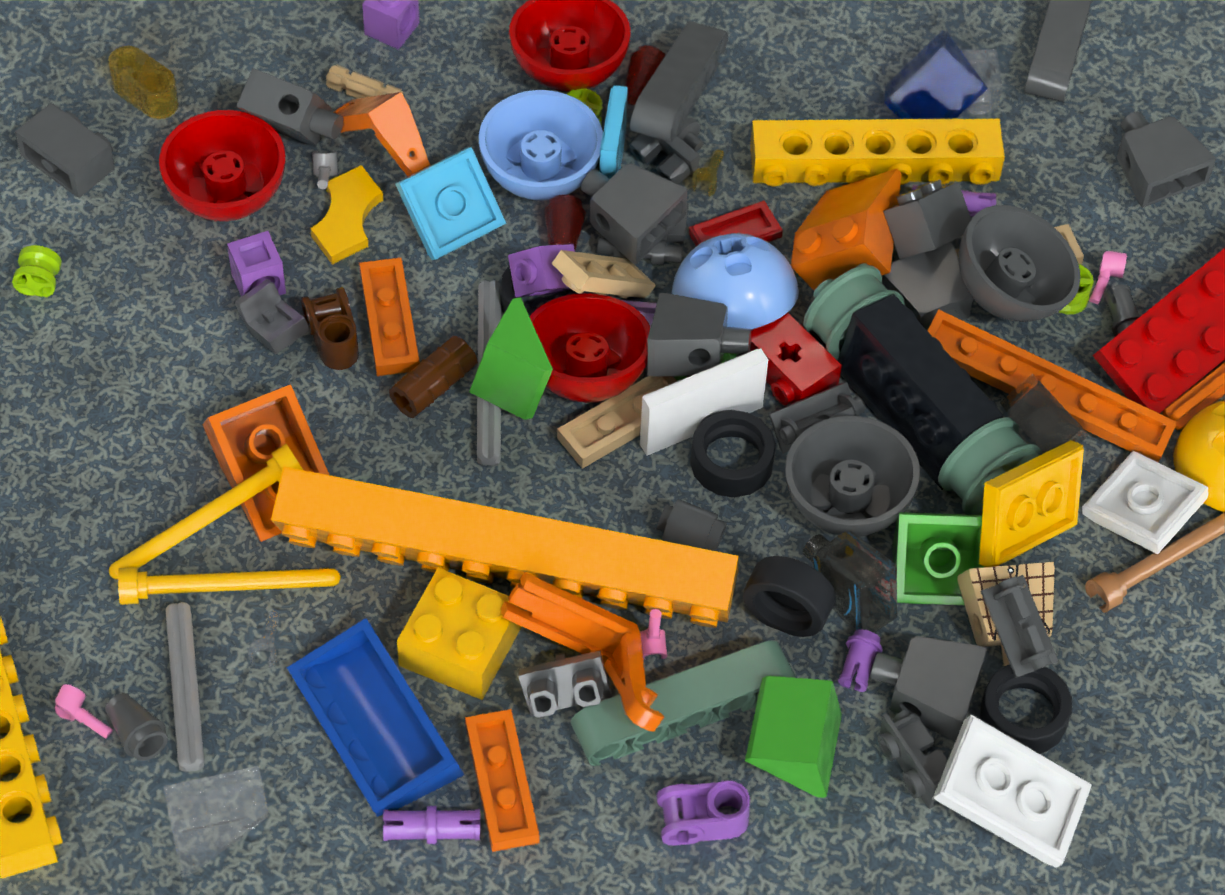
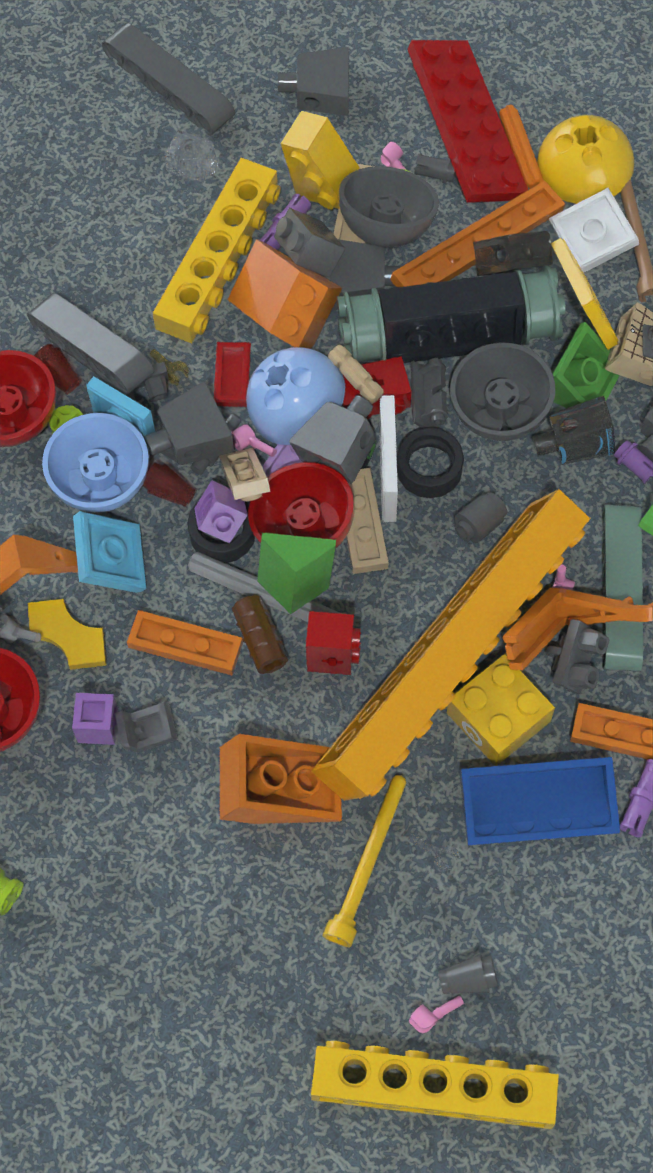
camera: 60 degrees left, 10 degrees up
(184, 687) = (447, 926): light grey axle -> none
(210, 512) = (303, 774): yellow piece -> none
(213, 814) = (570, 949): clear wing -> none
(332, 328) = (168, 685): reddish brown piece -> none
(448, 435) = (332, 643): none -> red brick
(660, 271) = (245, 436): none -> bright pink hand
(786, 324) = (355, 374): none -> tan axle
(789, 596) = (579, 475): black tyre -> none
(934, 83) = (184, 184): clear blue slope -> none
(1025, 162) = (317, 159): none -> yellow wedge

